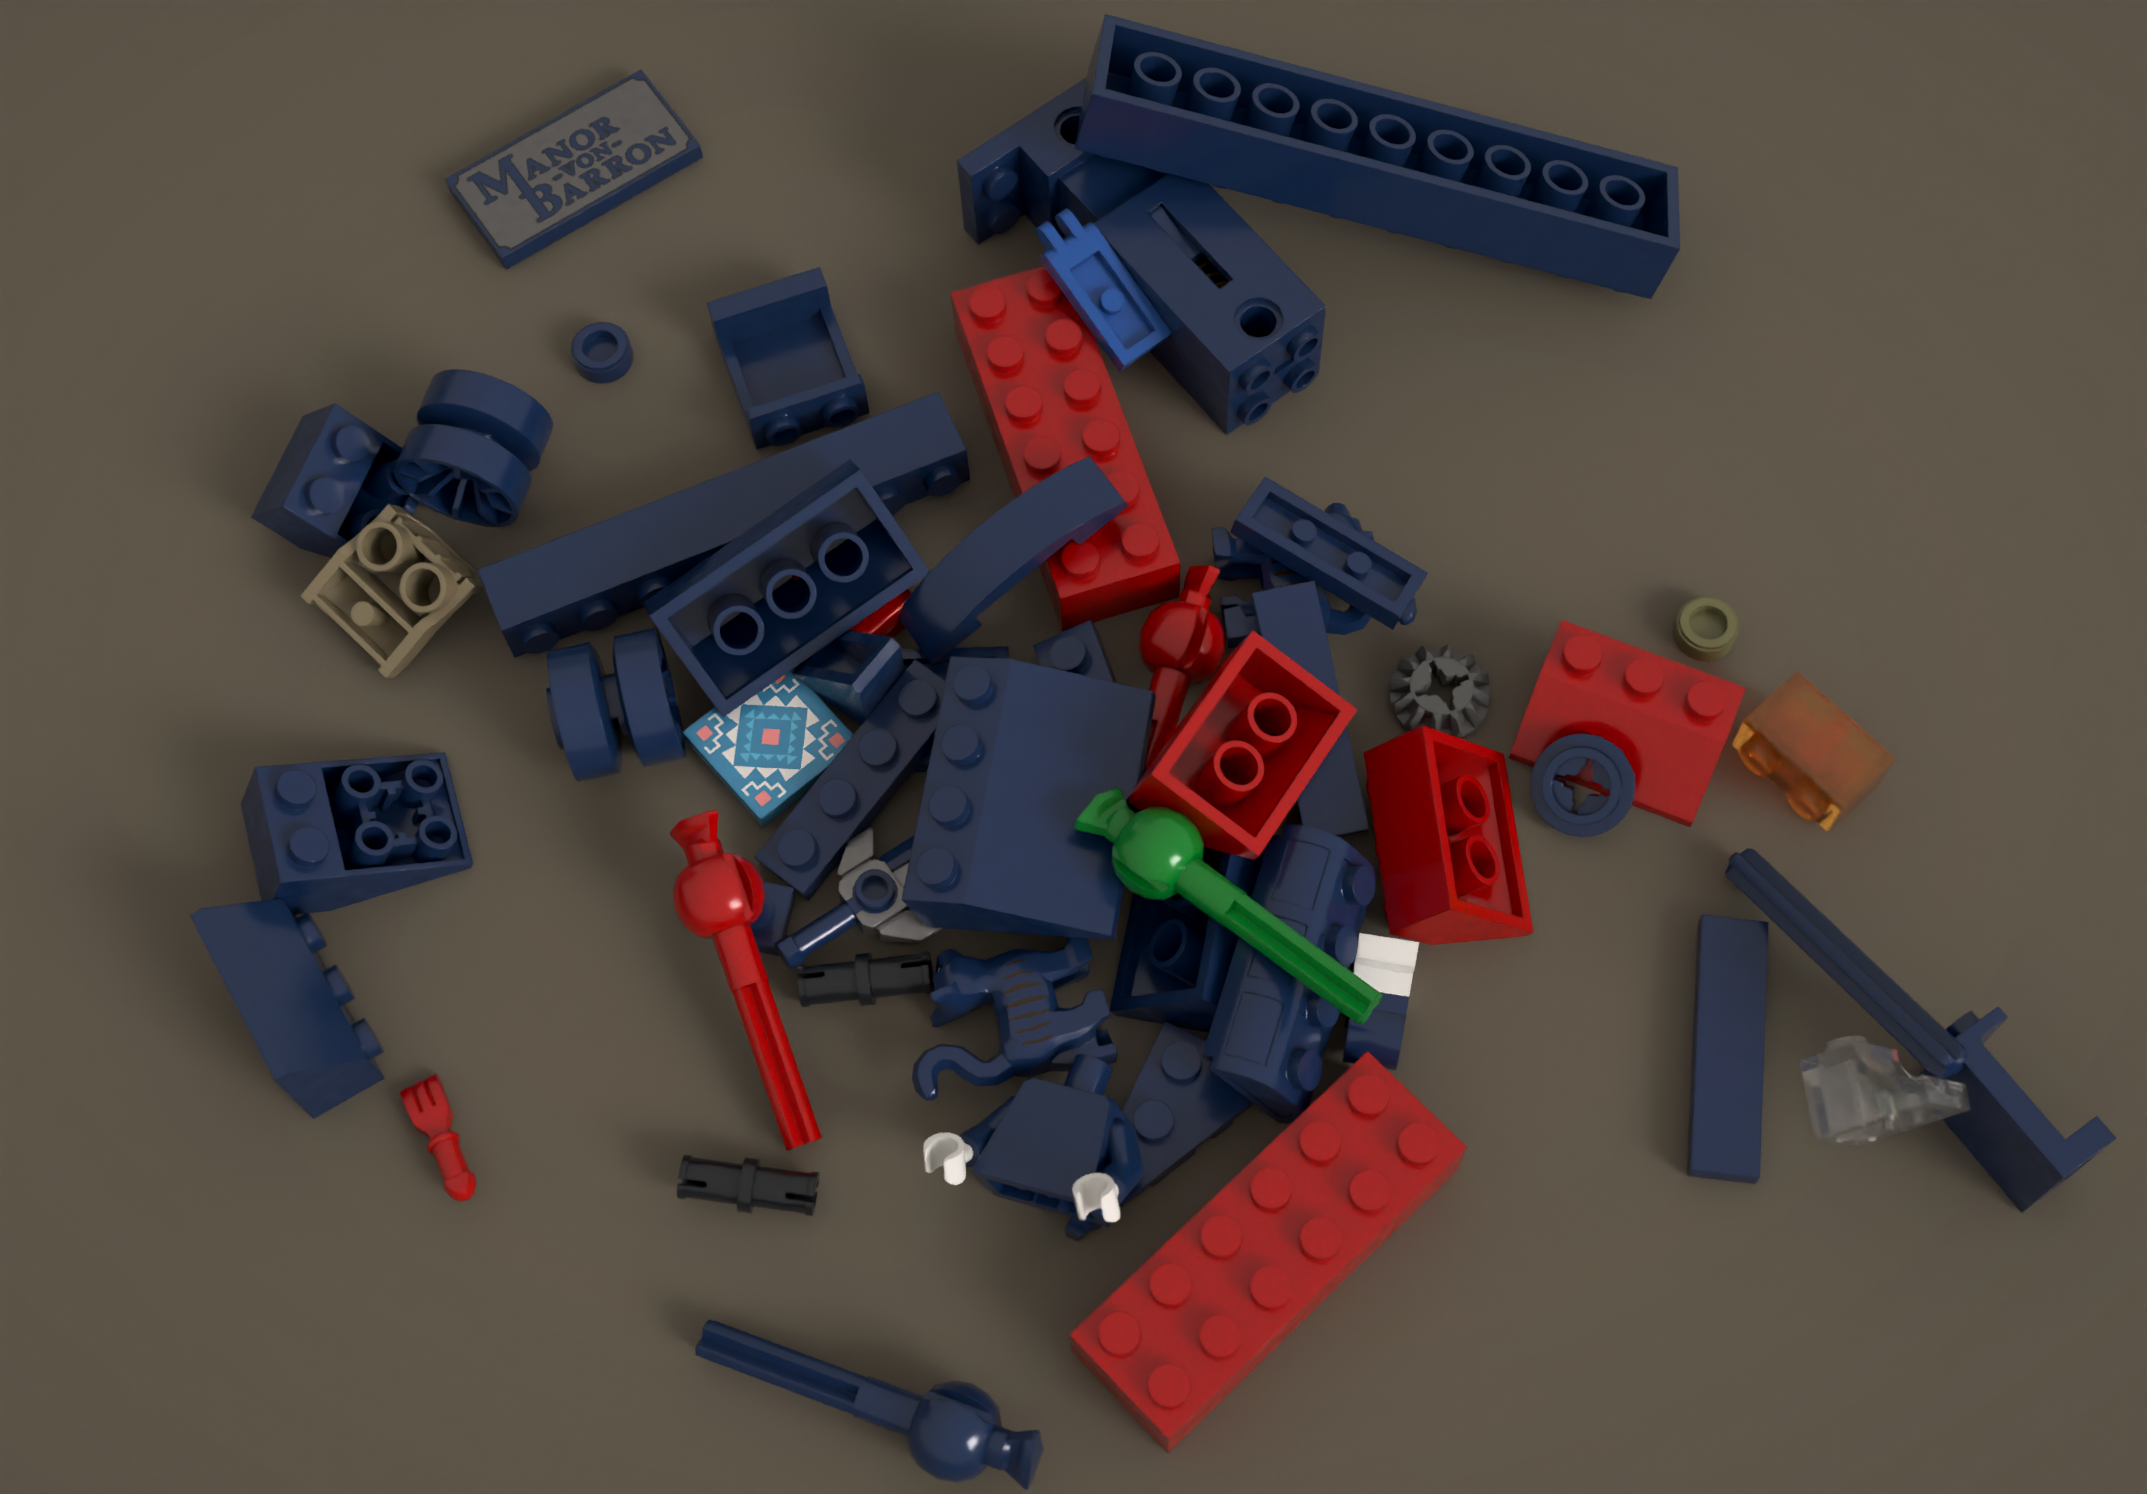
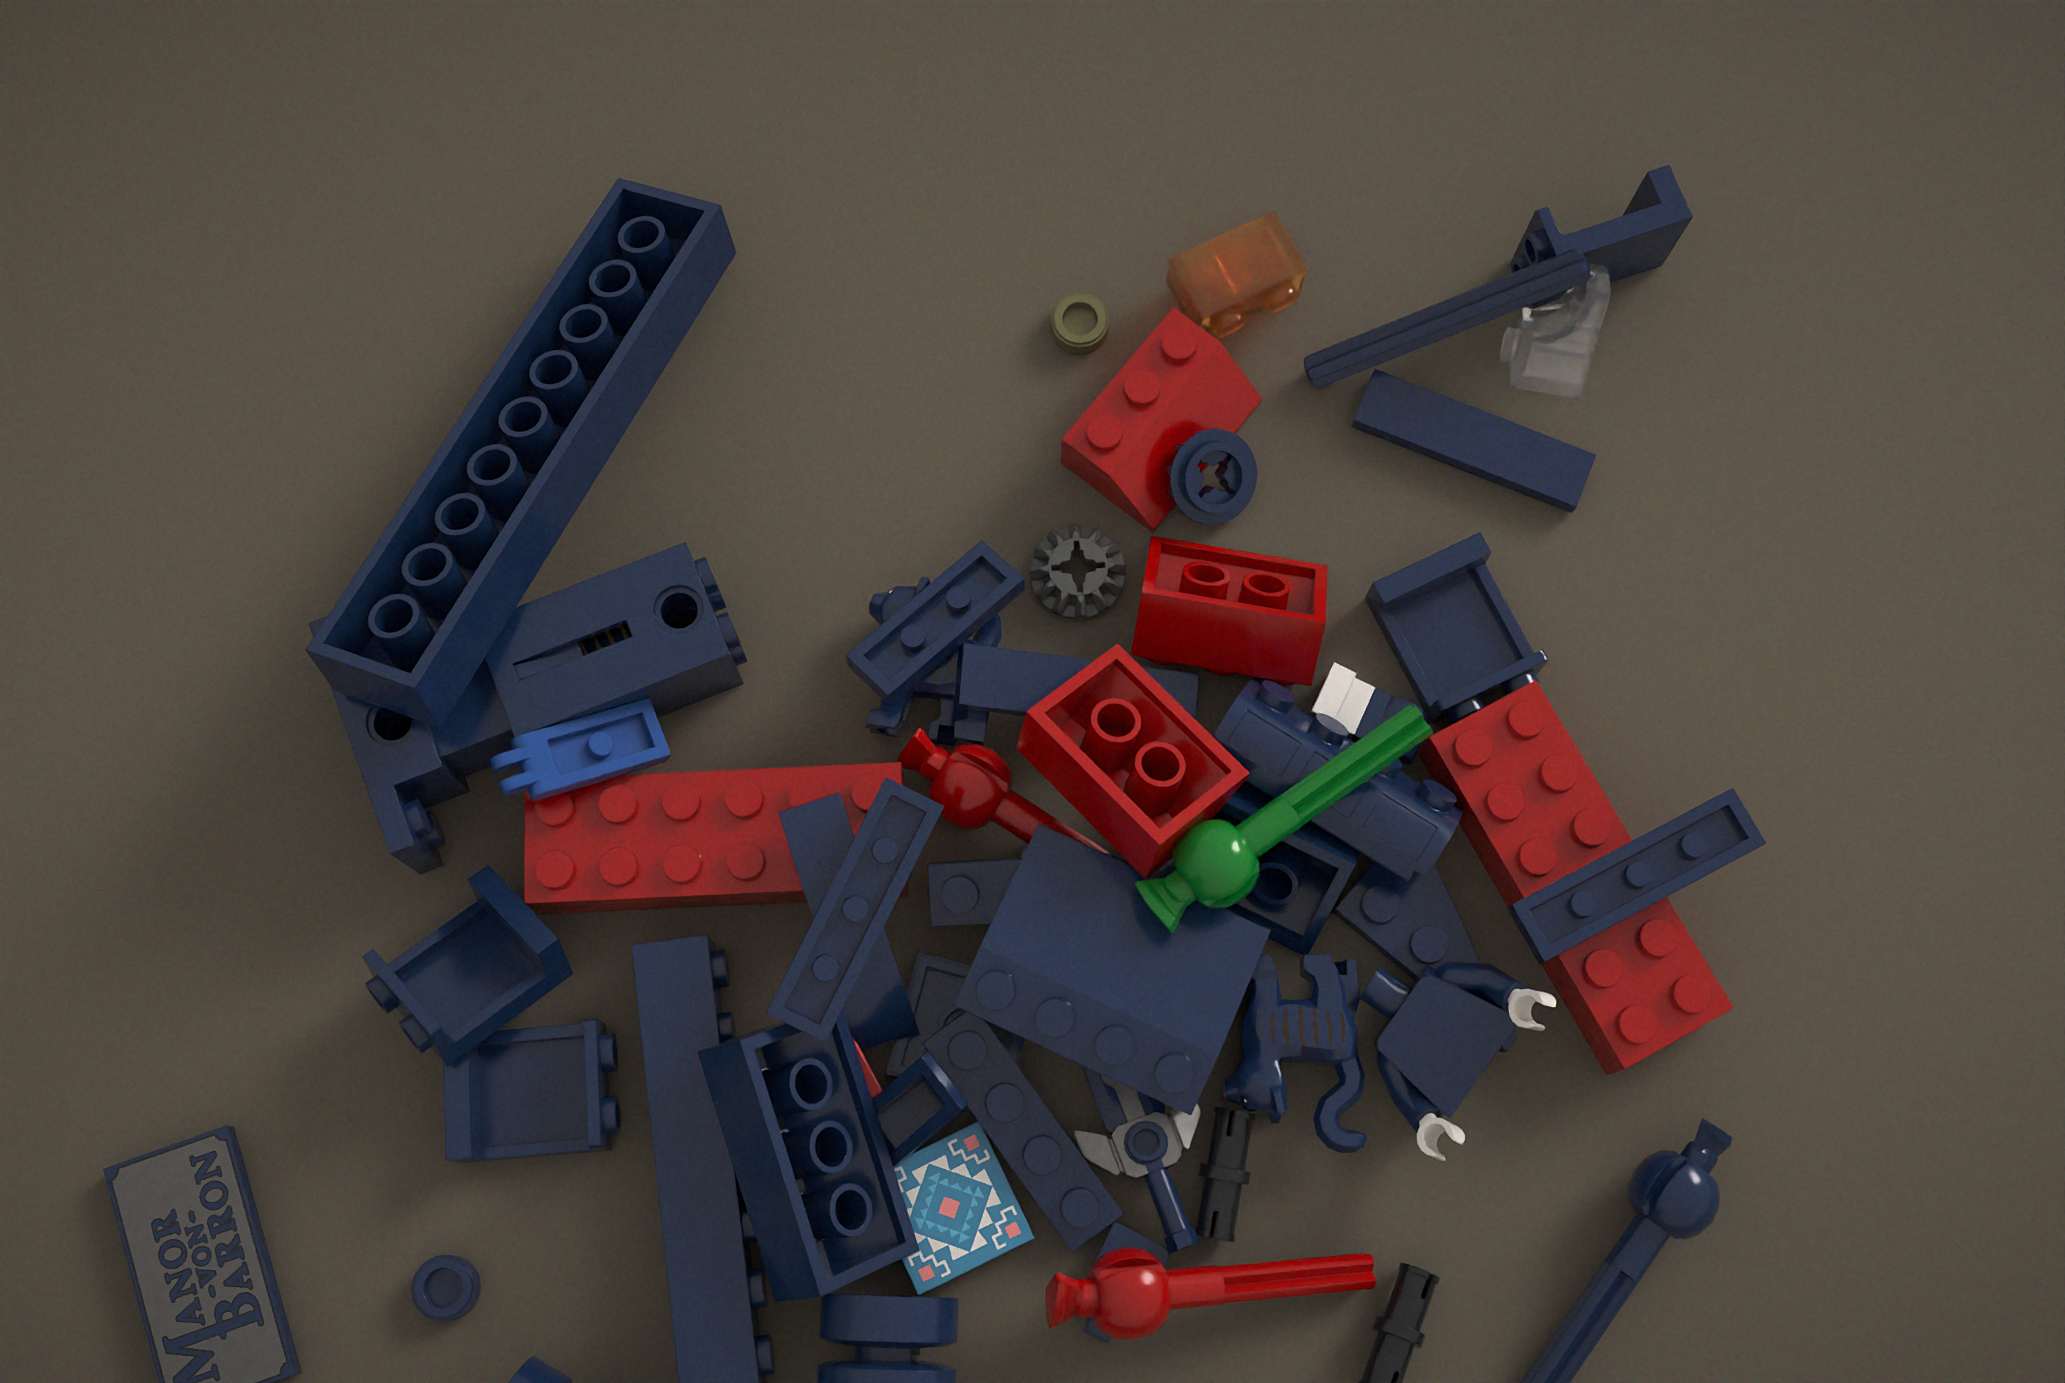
camera: 80 degrees left, 10 degrees up
(875, 272) = (470, 972): none -> dark blue panel
(1014, 535) = (855, 909): none -> dark blue plate
(1277, 1285) = (1636, 875): none -> dark blue plate
(1507, 1071) = (1453, 631): none -> dark blue panel

